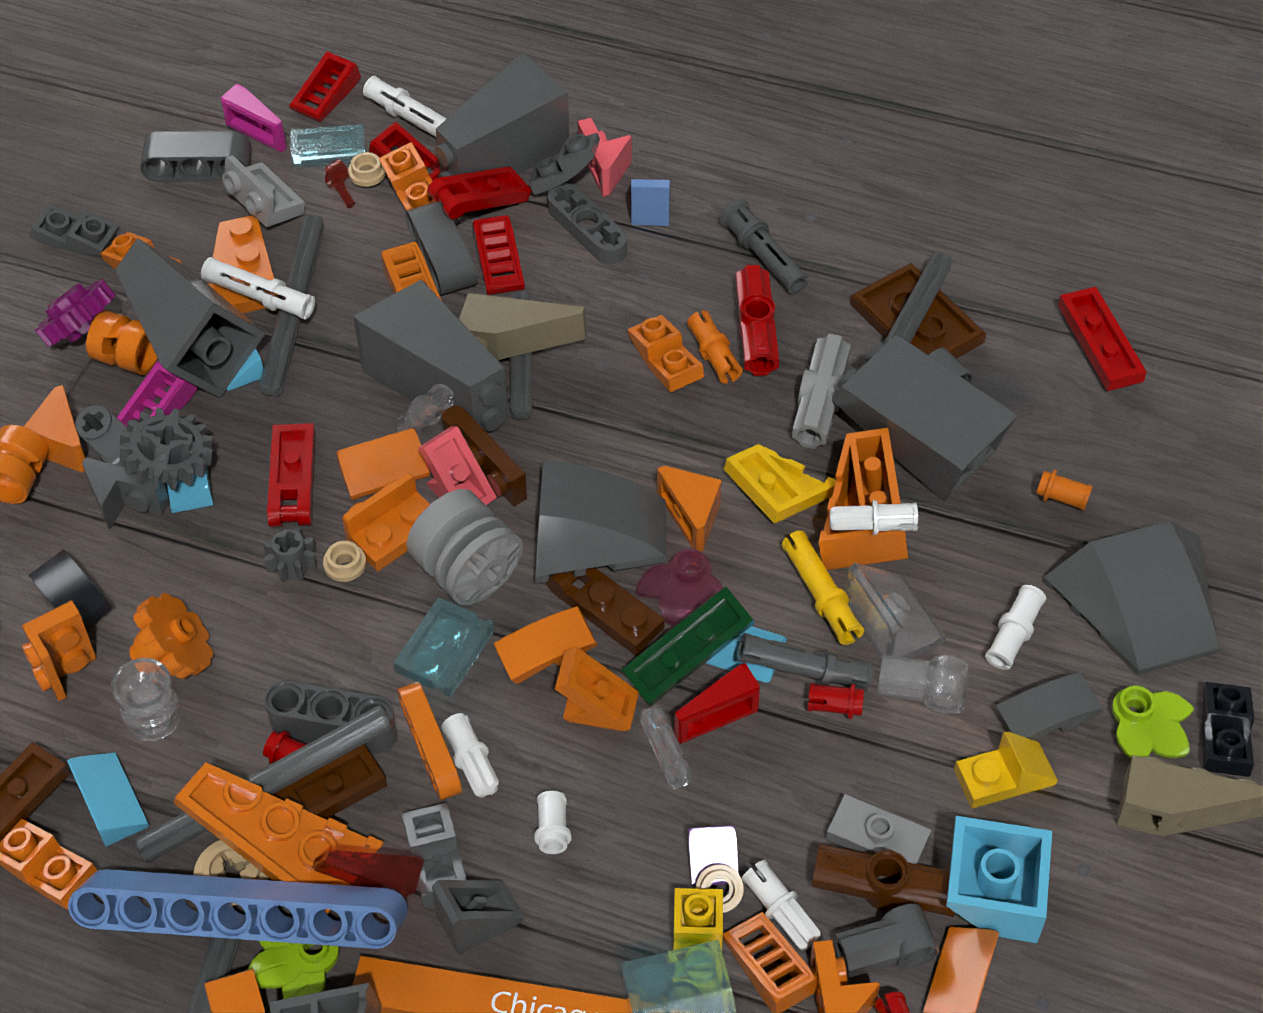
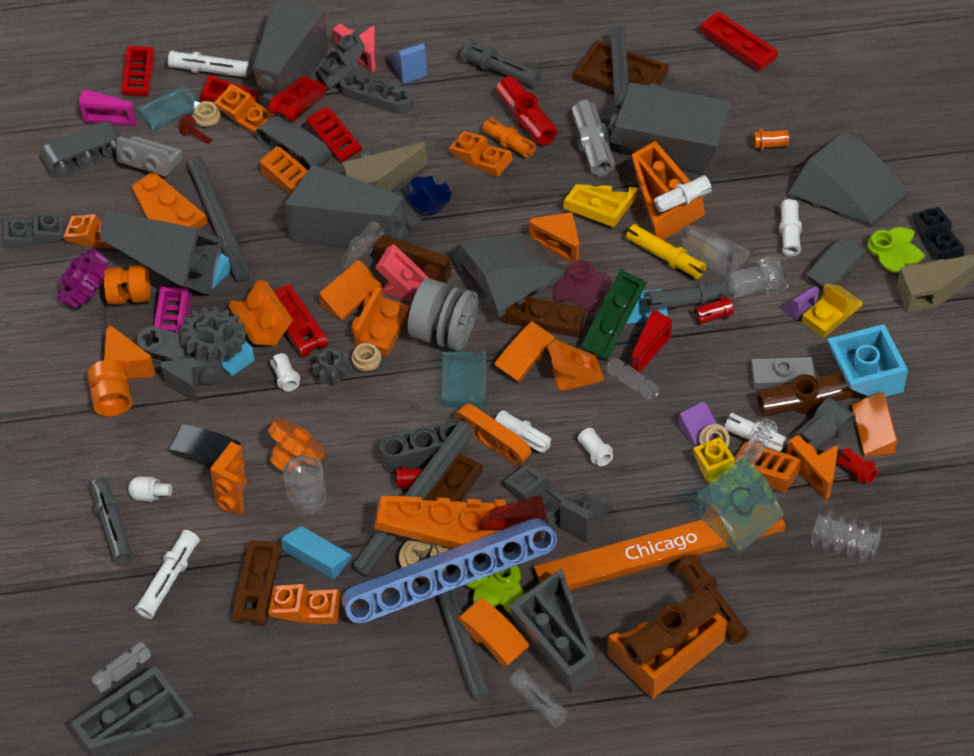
camera: 25 degrees left, 0 degrees up
(230, 545) = (287, 377): none -> white pin
(249, 450) = (262, 314): none -> orange bracket
(295, 301) = (229, 214): white pin -> none
(557, 378) = (426, 195): none -> clear blue hair
(764, 927) = (758, 441): none -> clear axle
(965, 744) = (799, 305): none -> medium lavender slope

